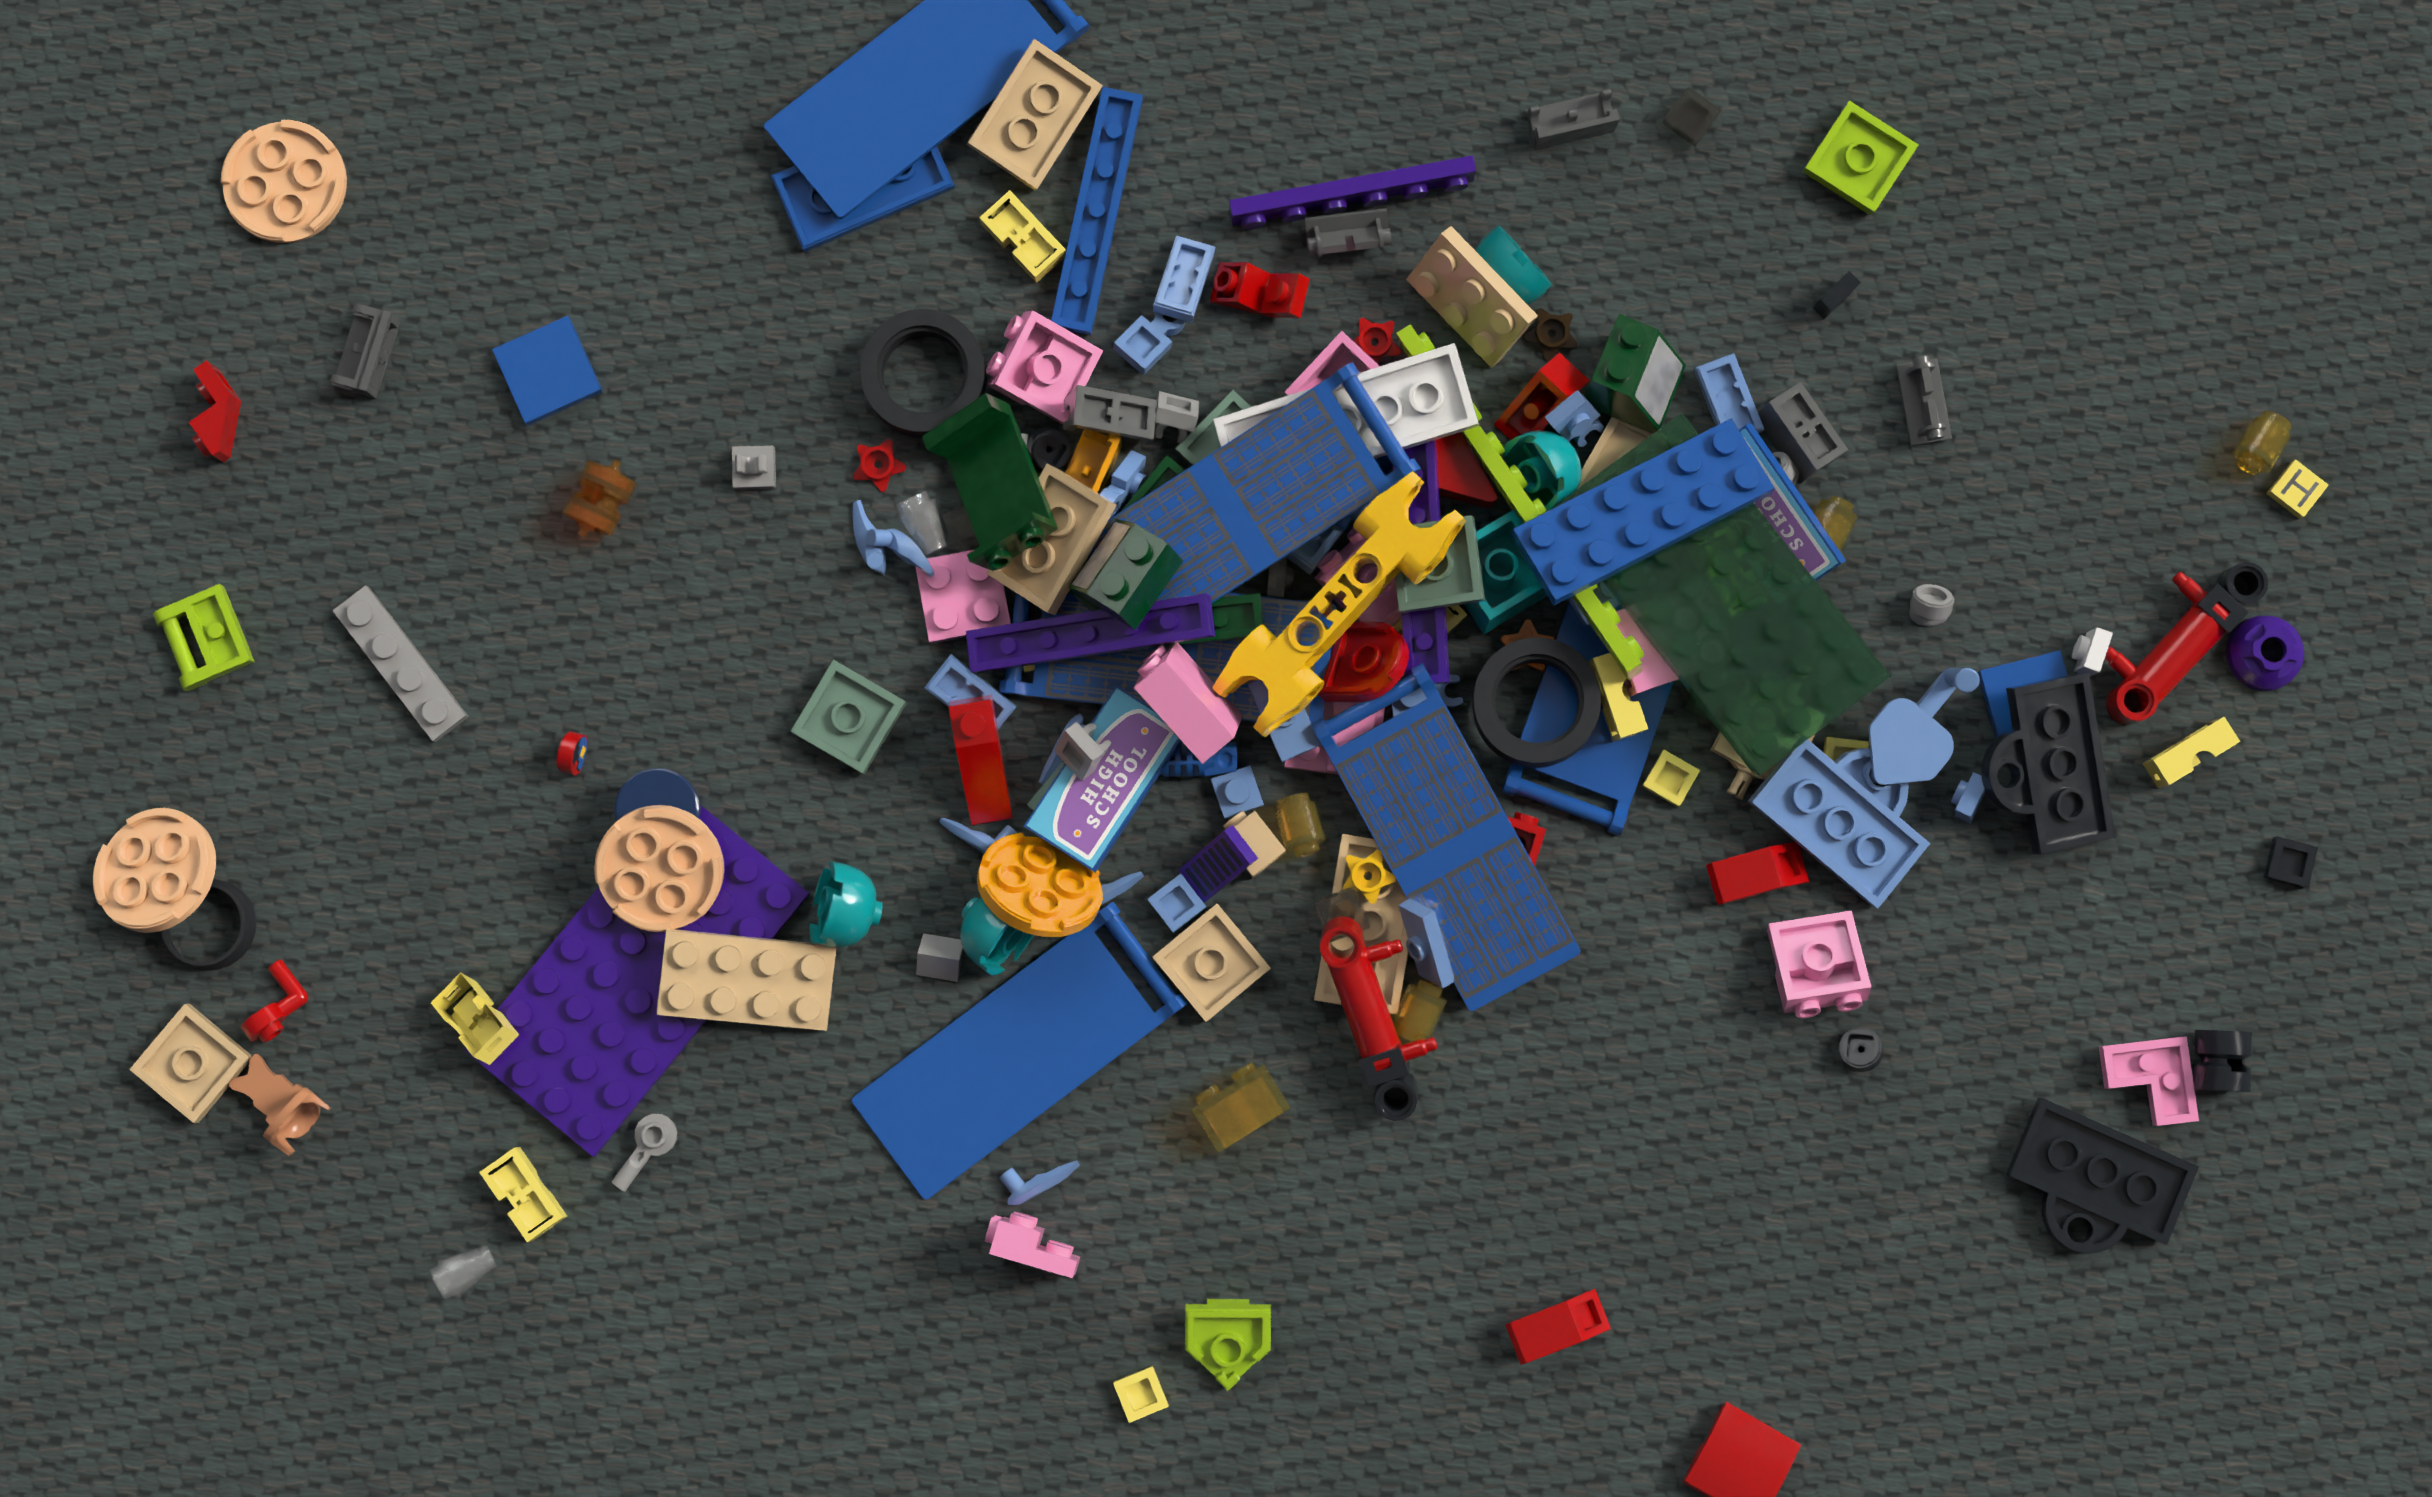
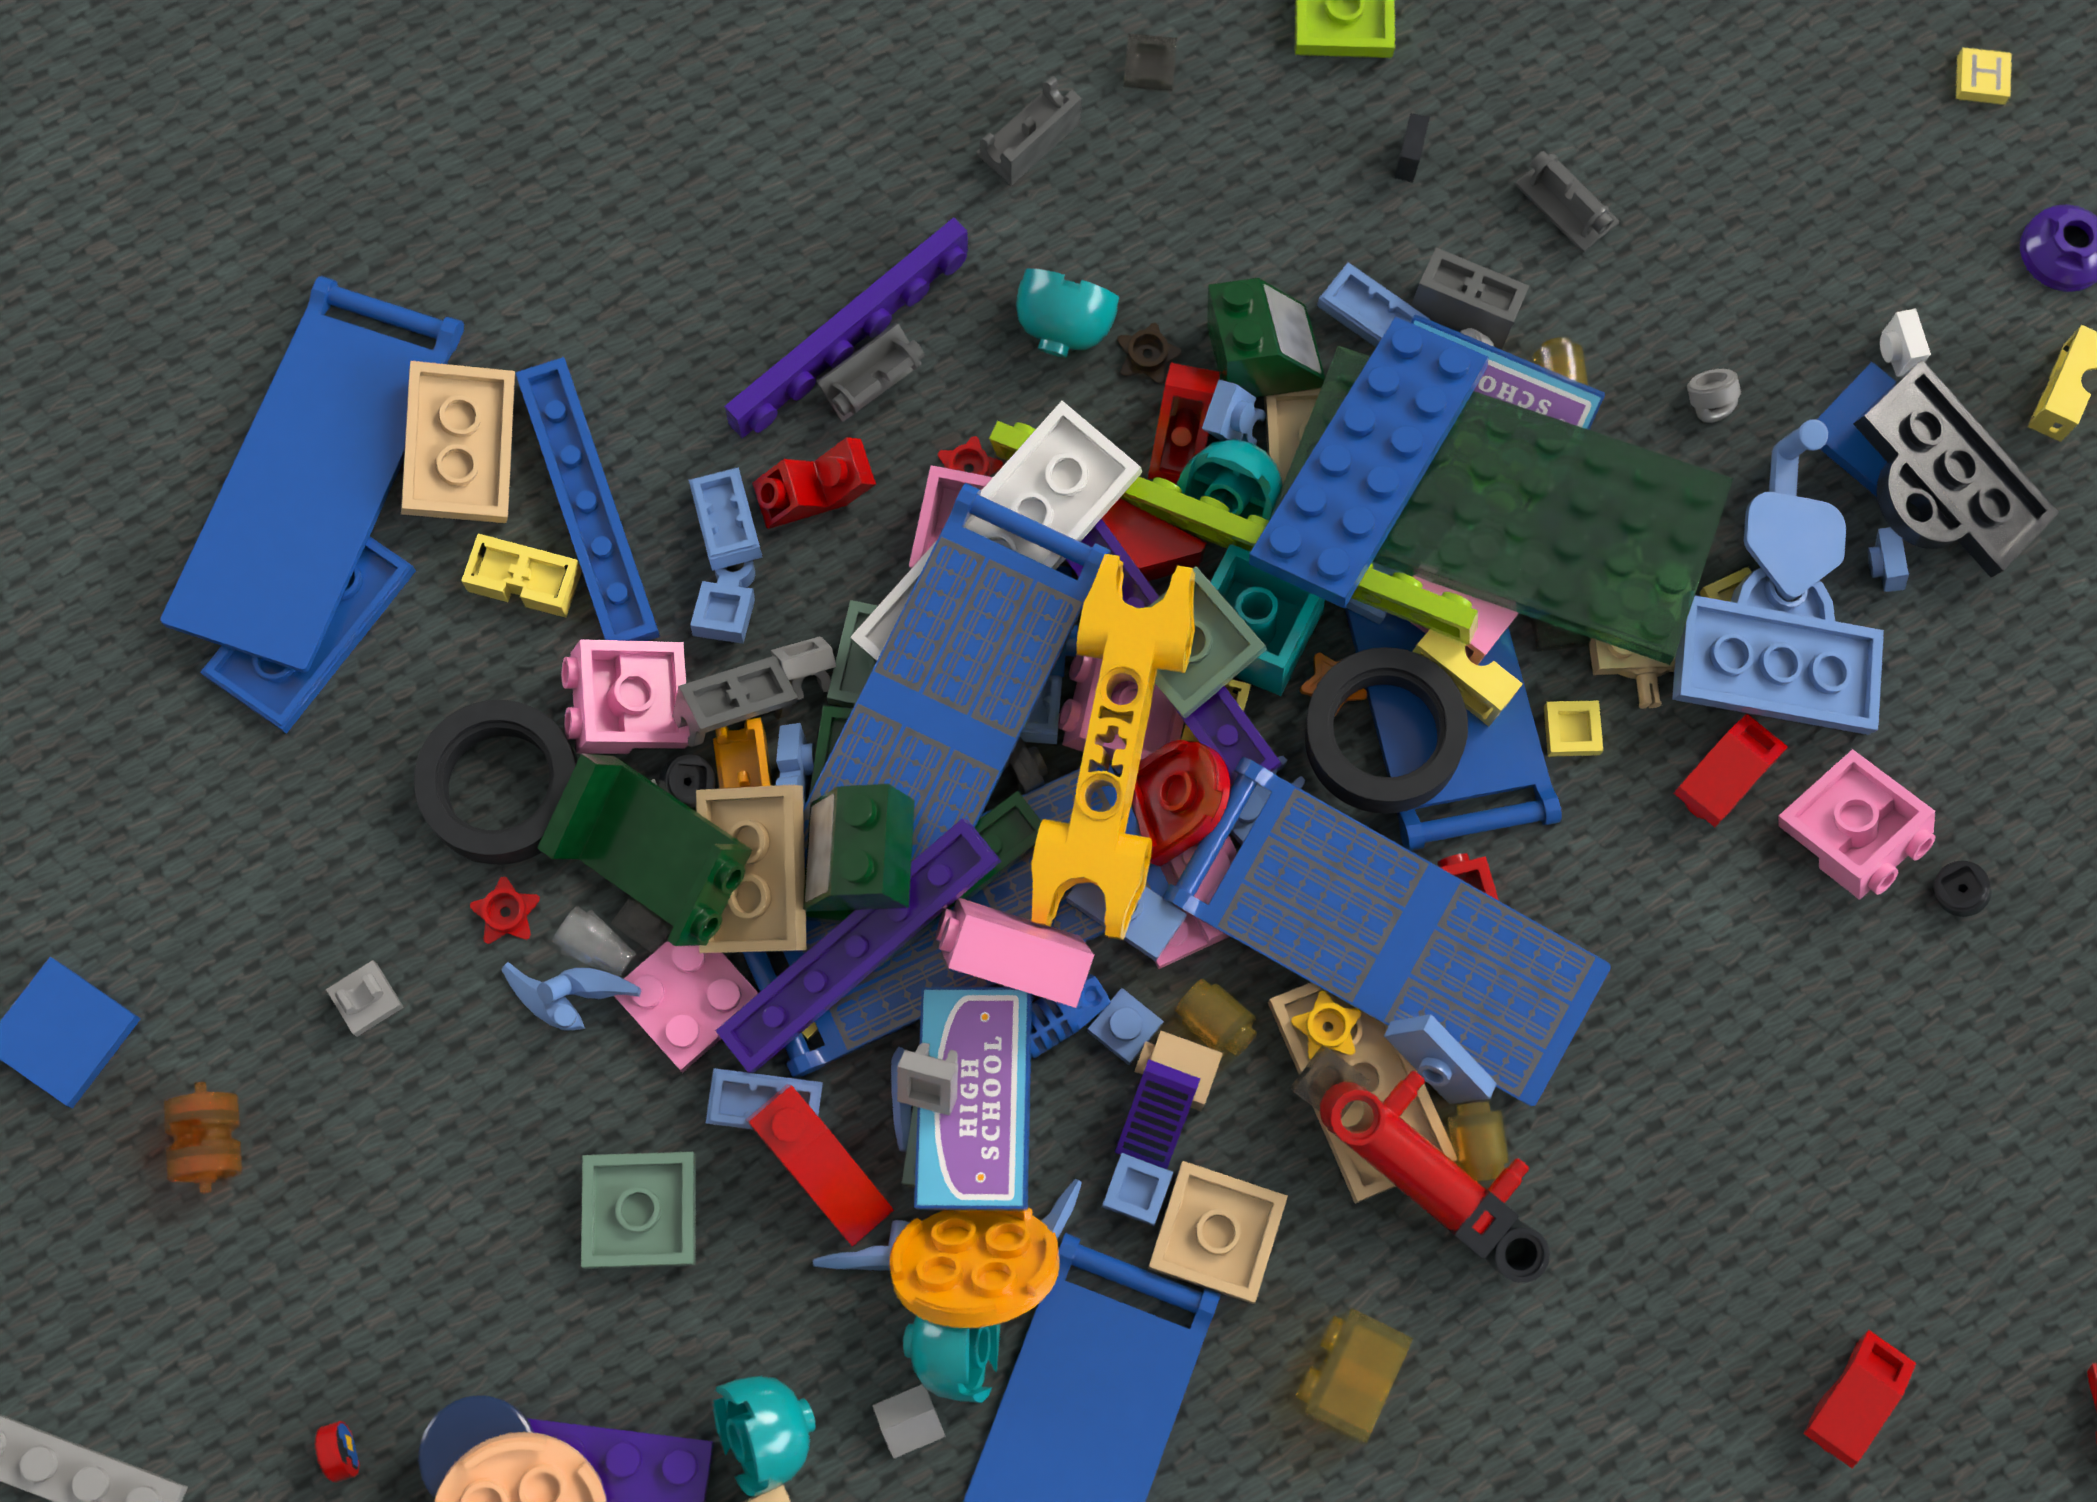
camera: 35 degrees left, 10 degrees down
(1471, 296) = (1043, 356): tan plate -> none
(2207, 620) = (1992, 248): red piece -> none
(2262, 443) = (1921, 49): clear yellow brick -> none

